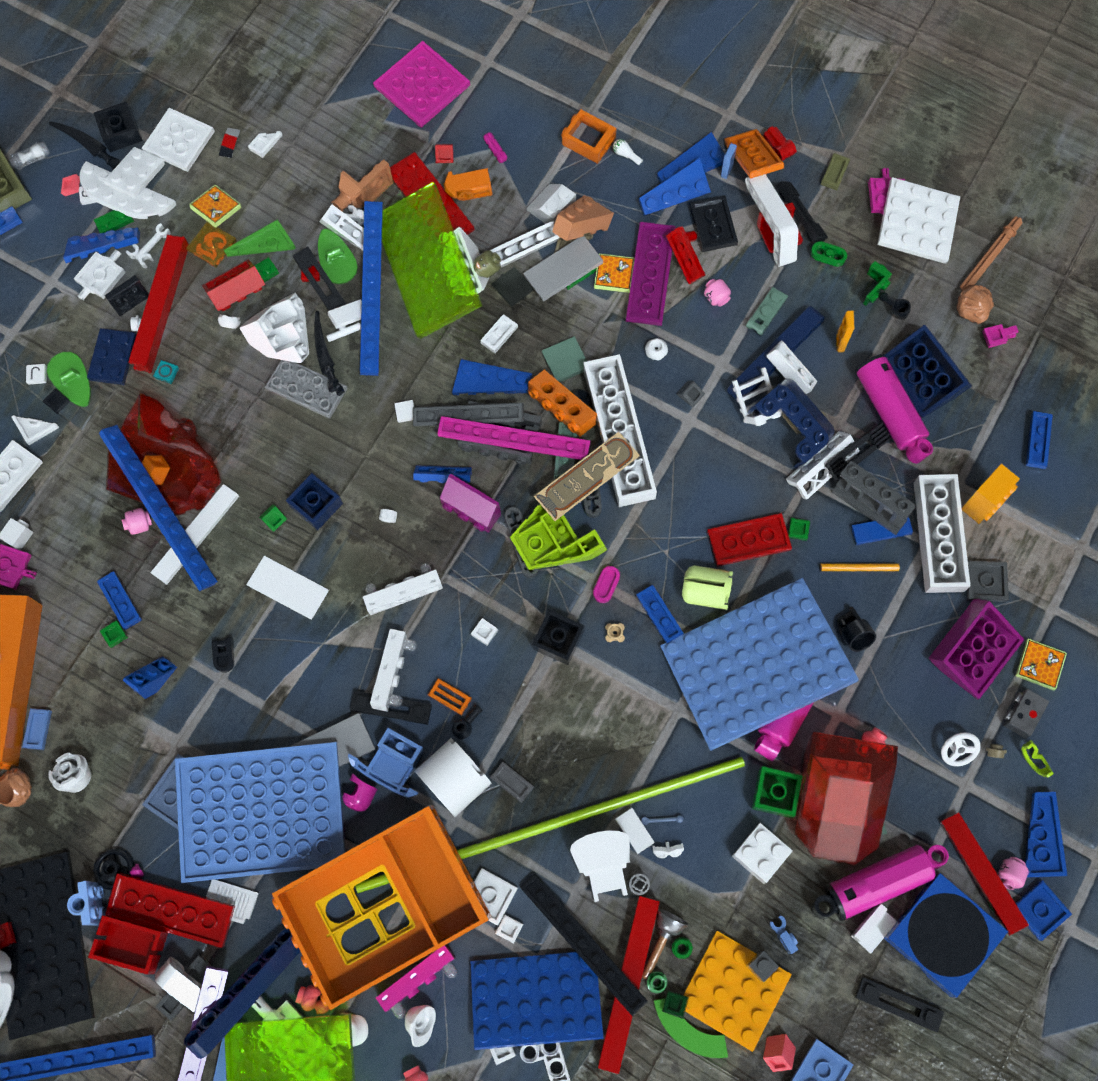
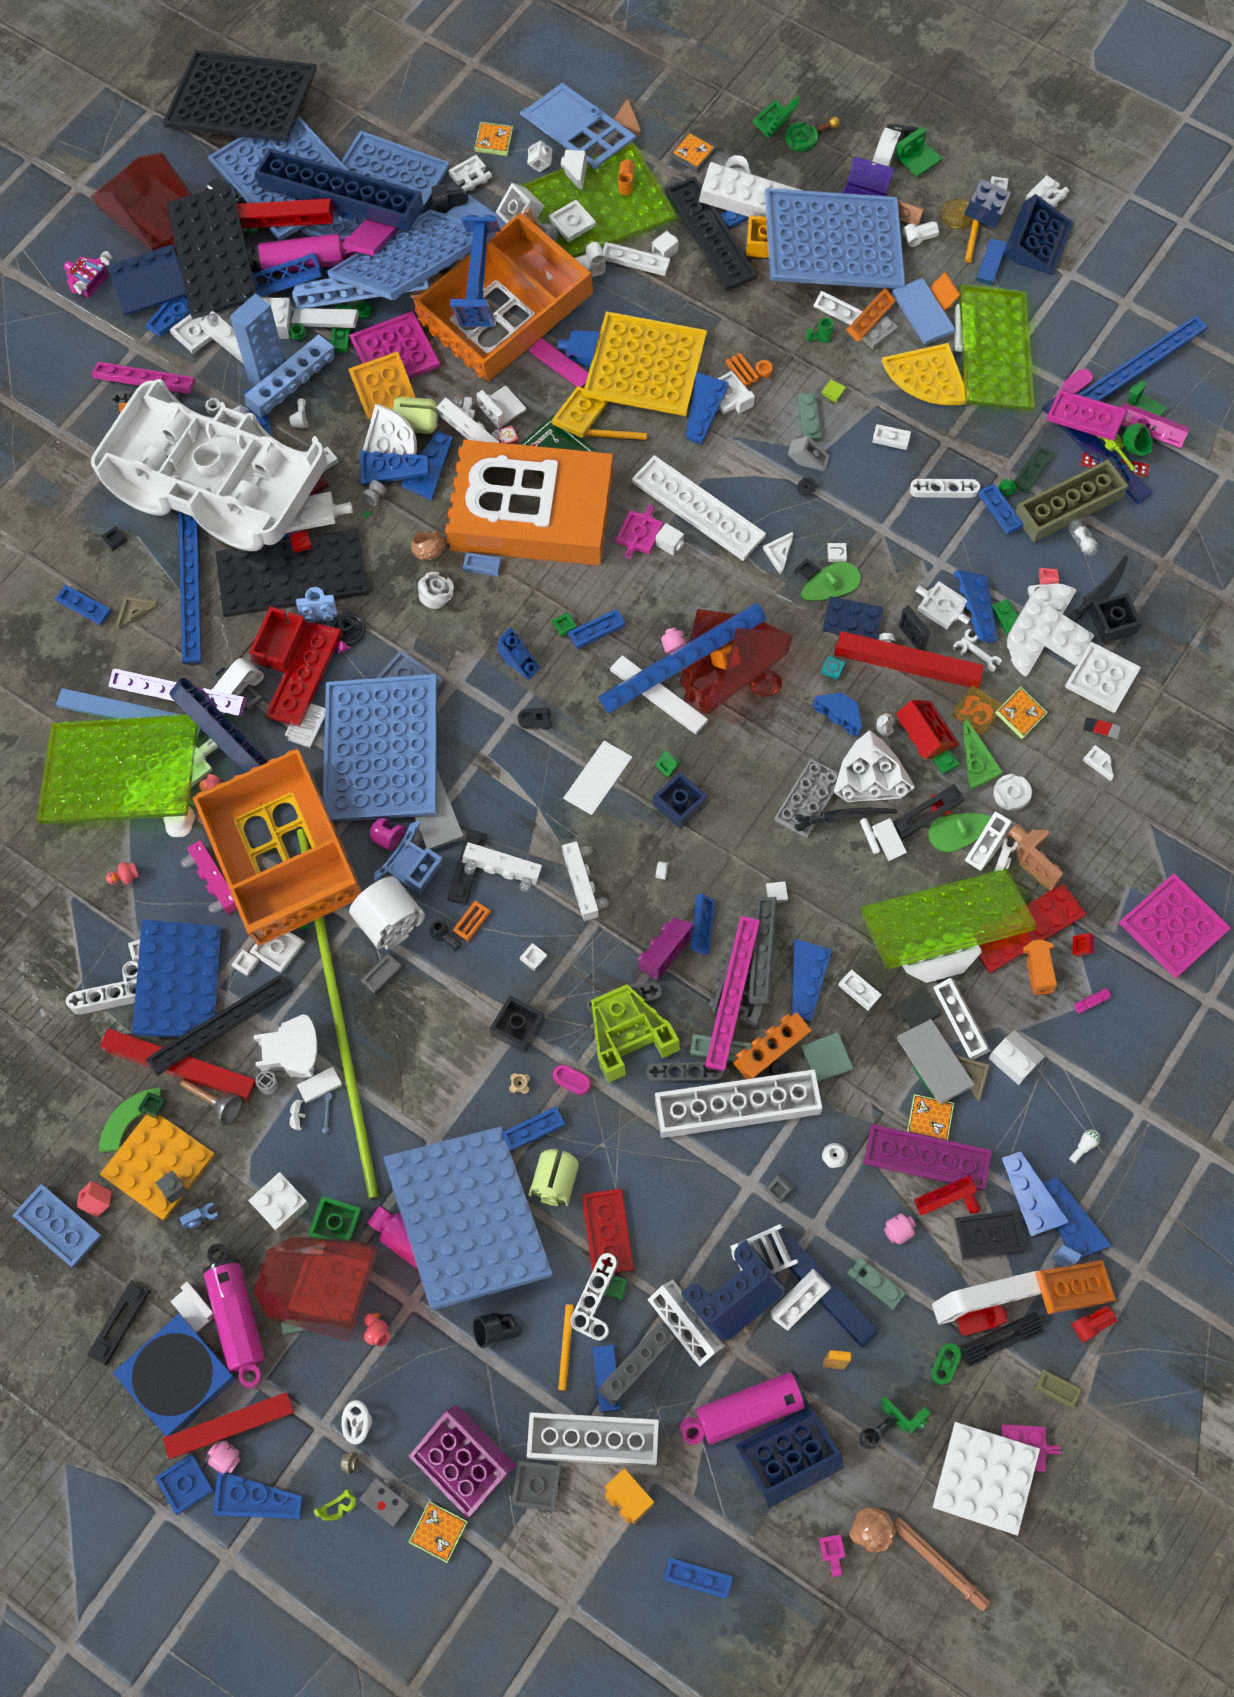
camera: 90 degrees right, 5 degrees down
(215, 360) = (840, 711): none -> blue slope
(296, 213) = (1012, 792): none -> white tile
(371, 288) = (917, 861): blue plate -> none
(420, 1023) = (172, 878): white hat -> none
(487, 264) = (933, 975): olive head -> none
(581, 218) = (992, 1082): nougat wedge -> none
(586, 476) = (683, 1062): sticker -> none
(592, 153) = (1093, 1118): orange window -> none
(662, 984) = (170, 1092): green plate -> none
(682, 955) = (203, 1113): green plate -> none
(810, 540) = (598, 1294): none -> white beam
(877, 436) = (712, 1388): black container -> none

